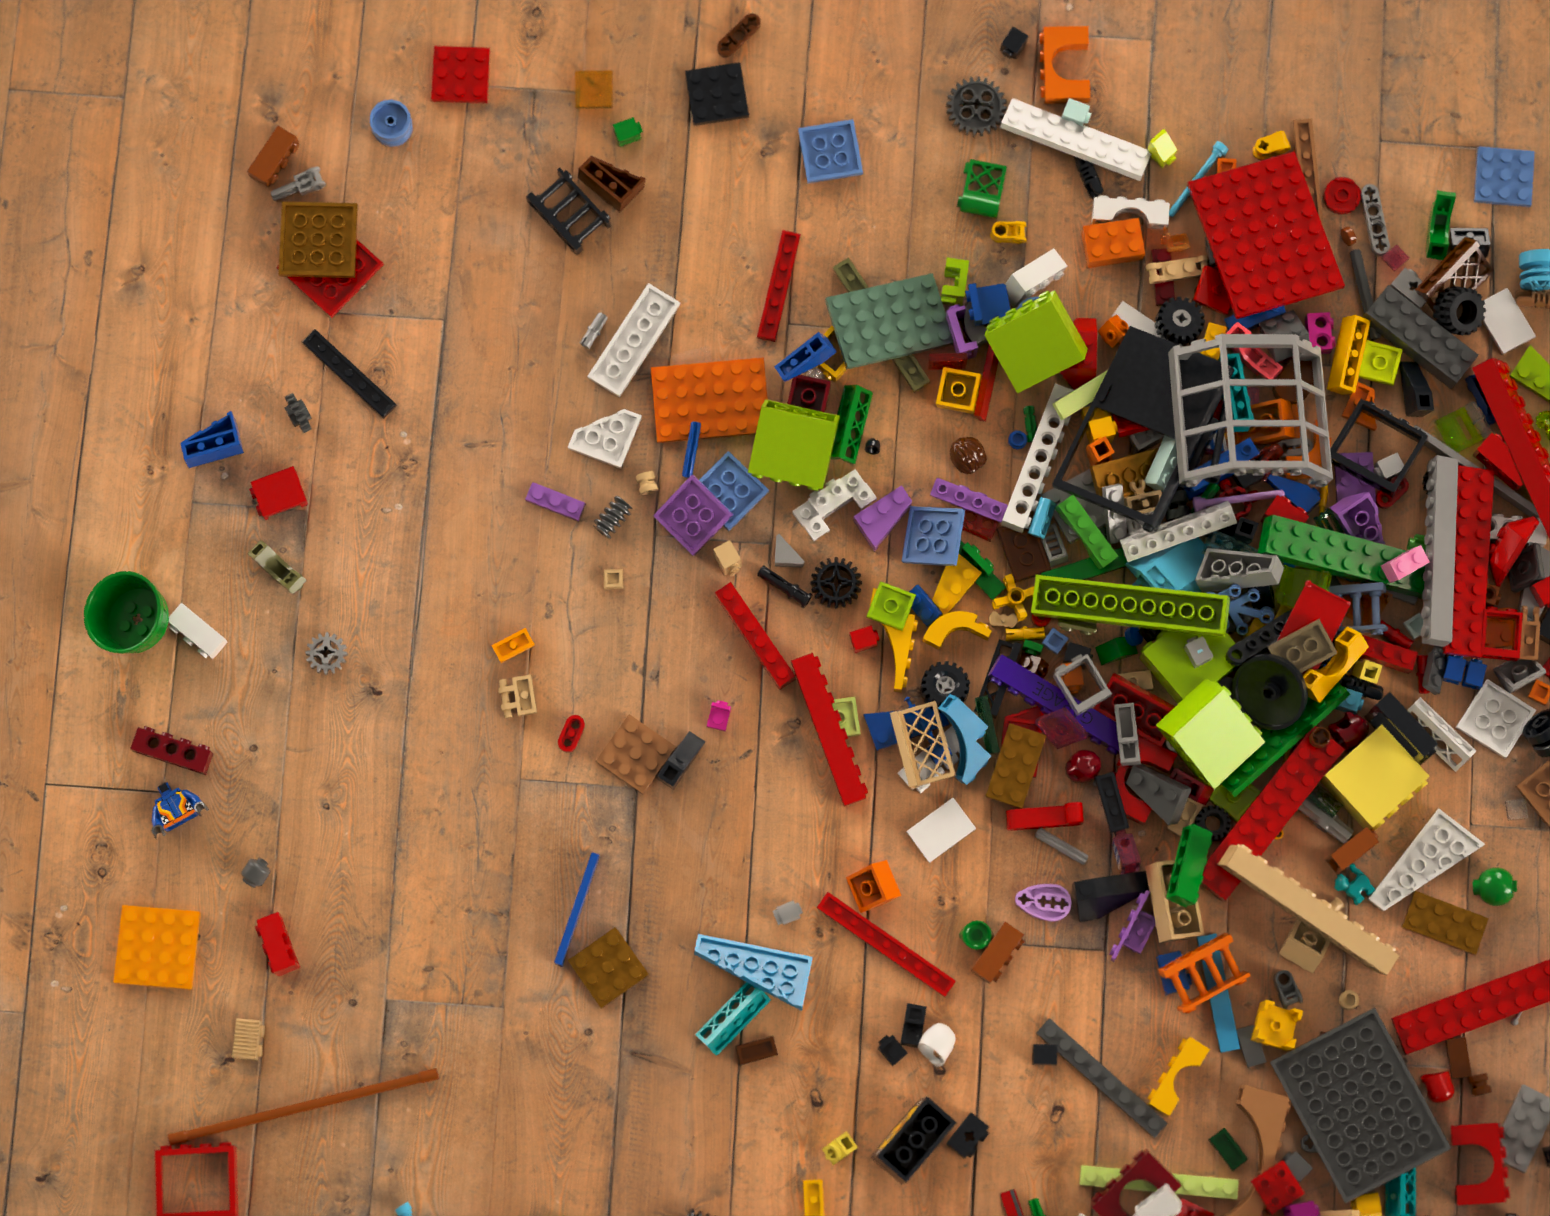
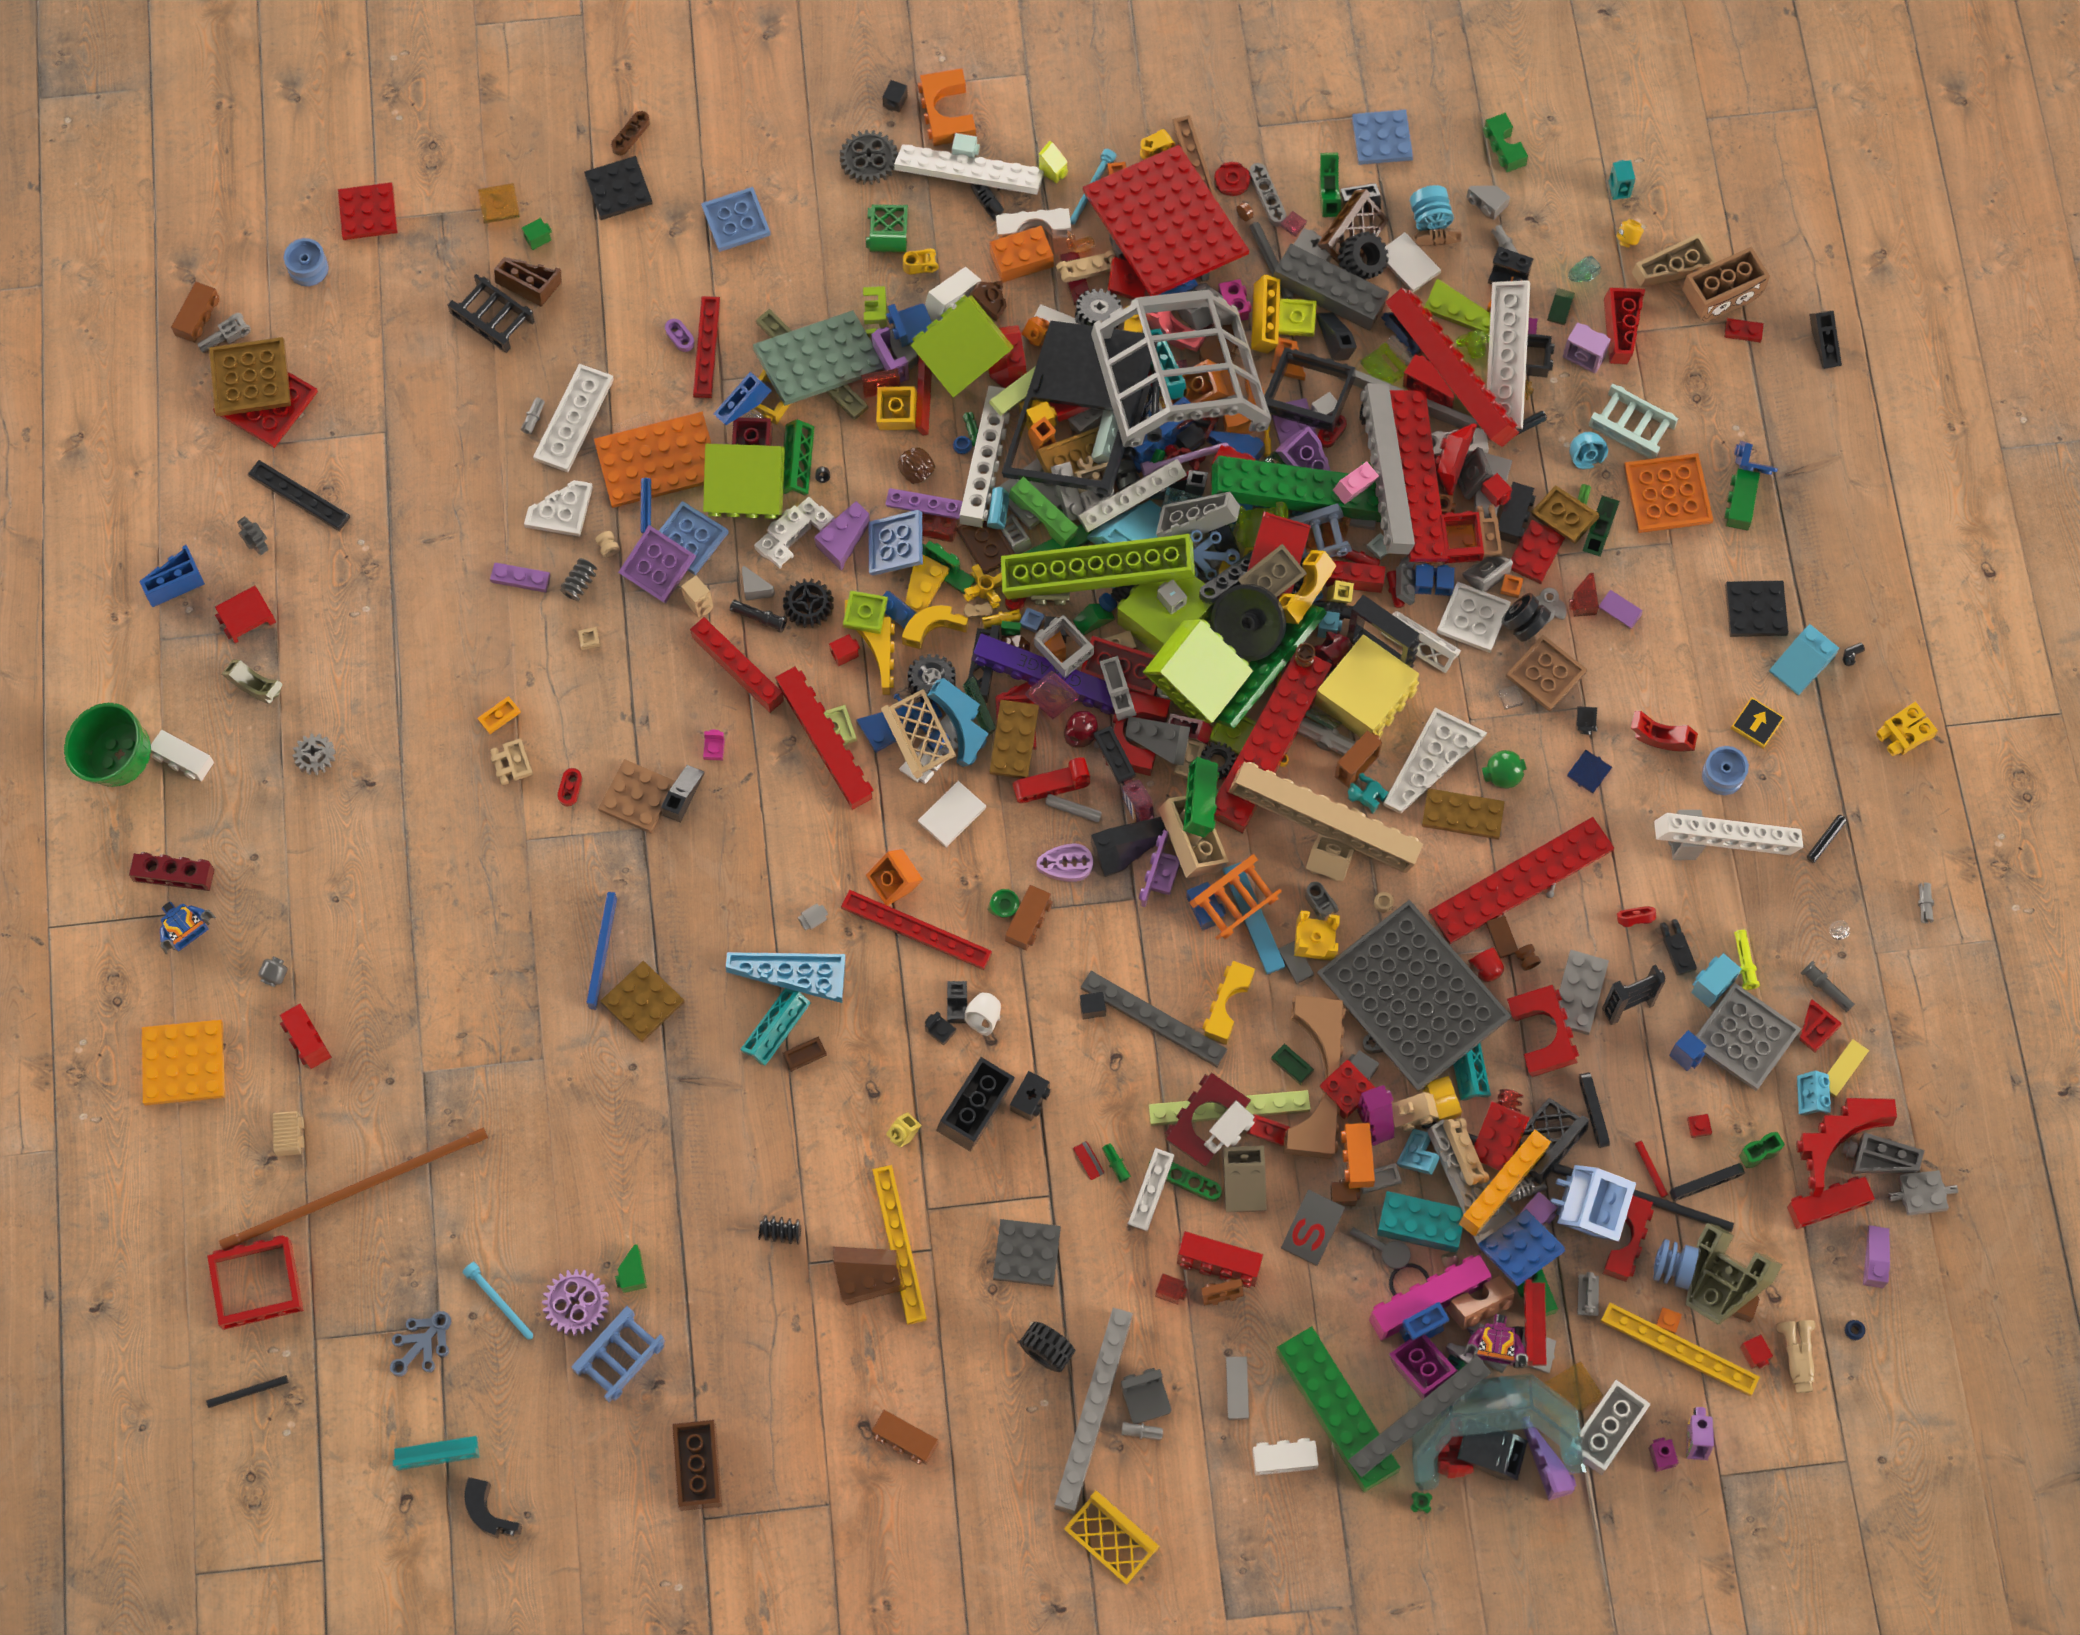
camera: 10 degrees left, 10 degrees down
(754, 269) = (680, 336): none -> medium lavender plate
(1072, 287) = (990, 298): none -> reddish brown plate

